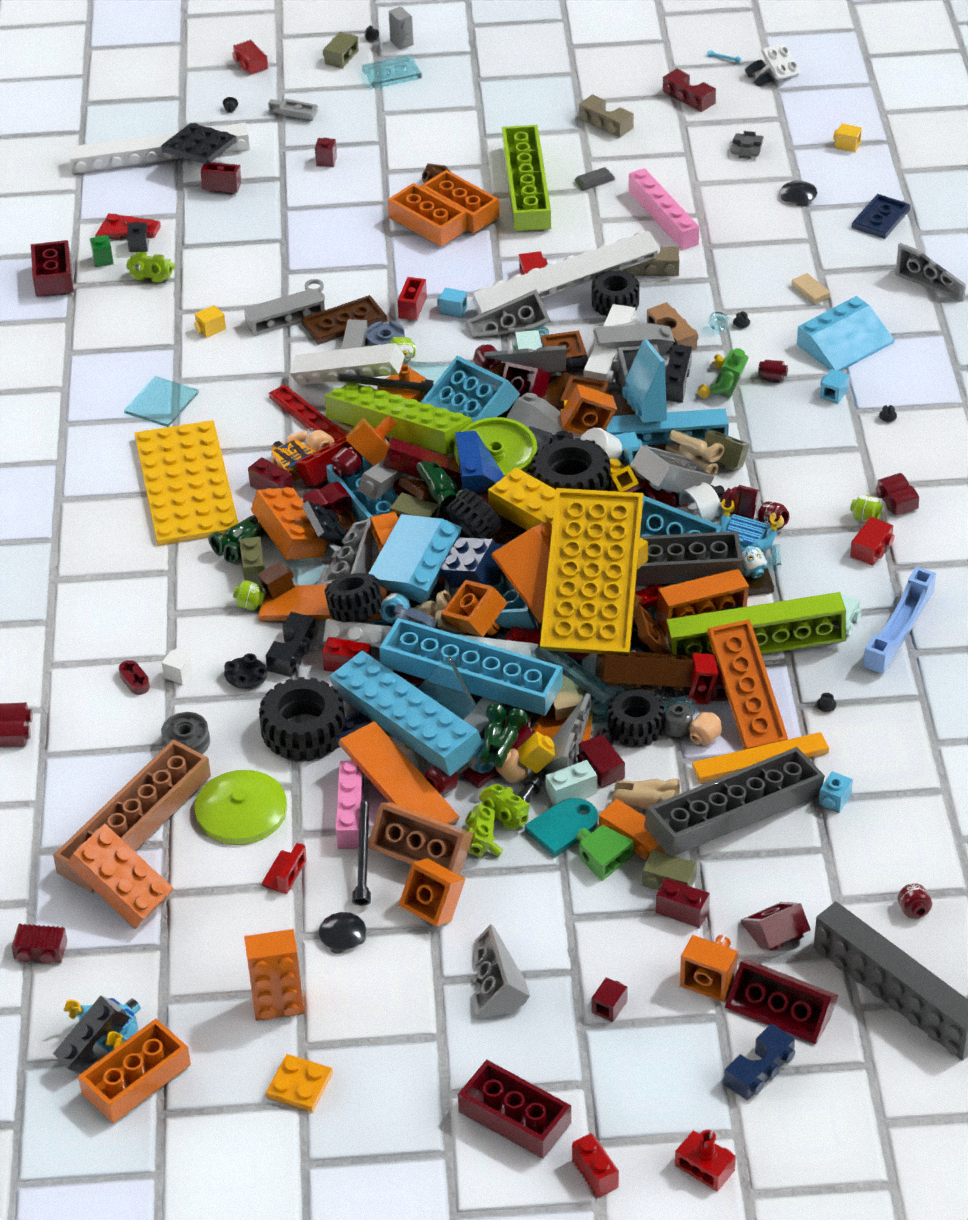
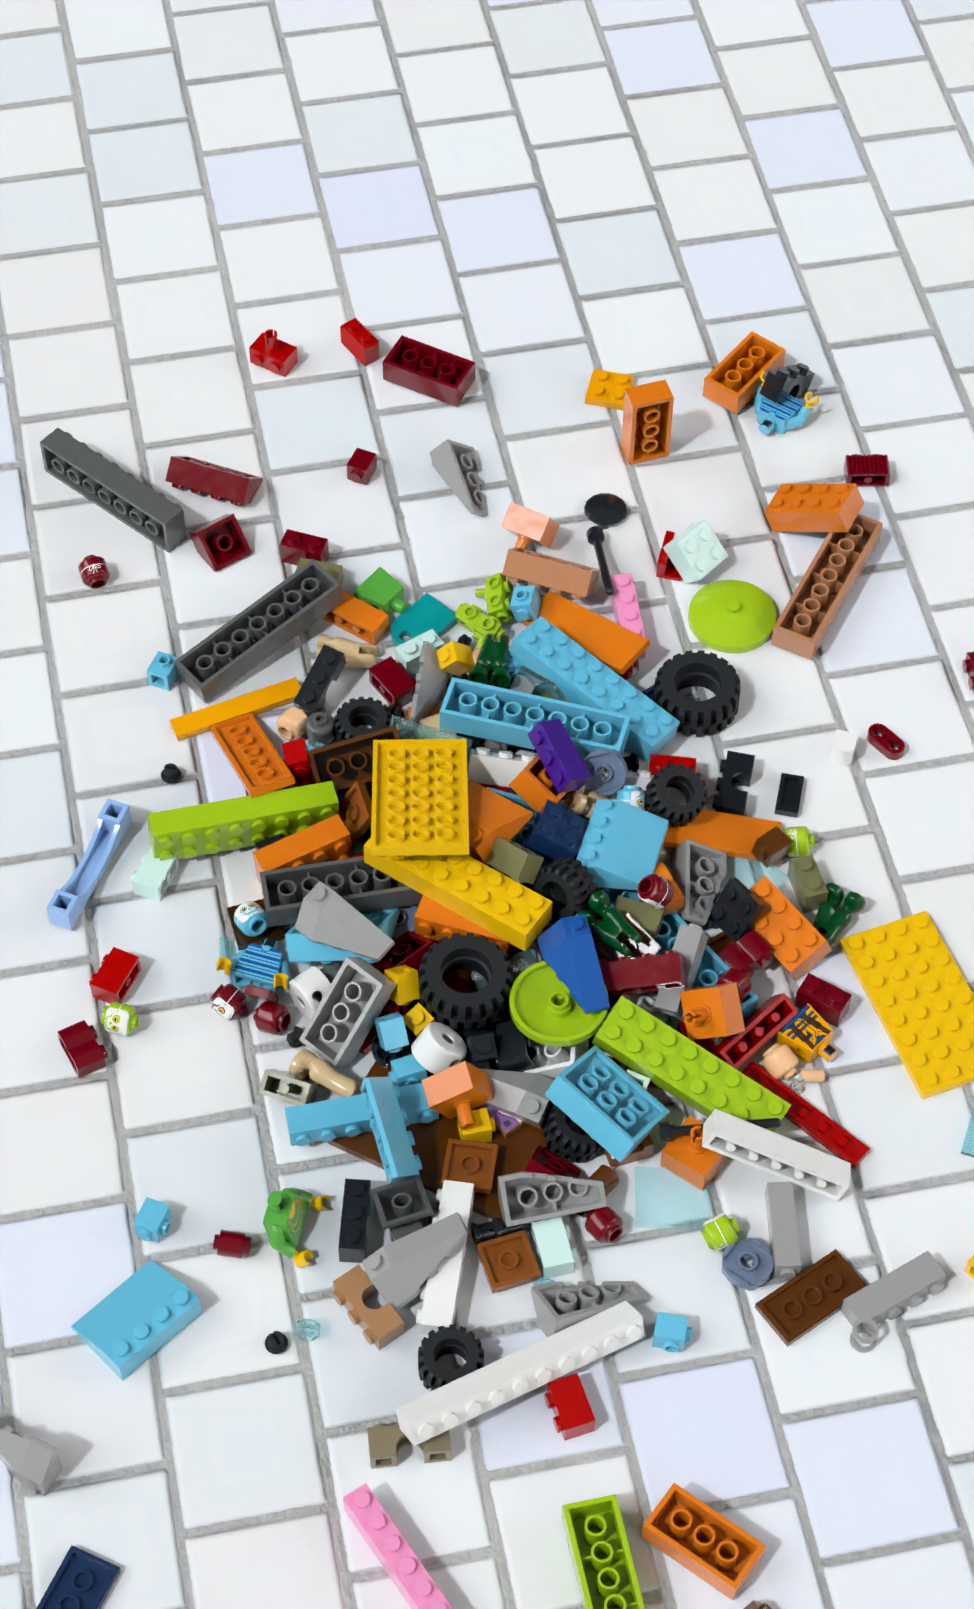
camera: 170 degrees right, 10 degrees up
(187, 729) = (808, 675): dark grey wheel -> none
(241, 640) = (789, 795): none -> black tile
(245, 672) = (773, 754): black dish -> none
(261, 849) = (695, 551): none -> light aqua brick
(395, 502) = (655, 891): none -> dark red head
(412, 298) = (726, 1322): red brick -> none
(427, 214) = (748, 1502): orange brick -> none
(455, 812) = (525, 603): none -> medium azure brick
(457, 605) = (559, 755): none -> dark purple brick
(511, 519) = (514, 860): none -> olive brick
(672, 505) = (333, 921): none -> light grey wedge
(682, 744) = (324, 671): none -> black arch
(708, 967) = (277, 486): orange brick -> none
(749, 1076) = (241, 417): dark blue arch -> none
(811, 288) = (181, 1418): tan tile -> none
(888, 413) = (86, 1186): black piece -> none

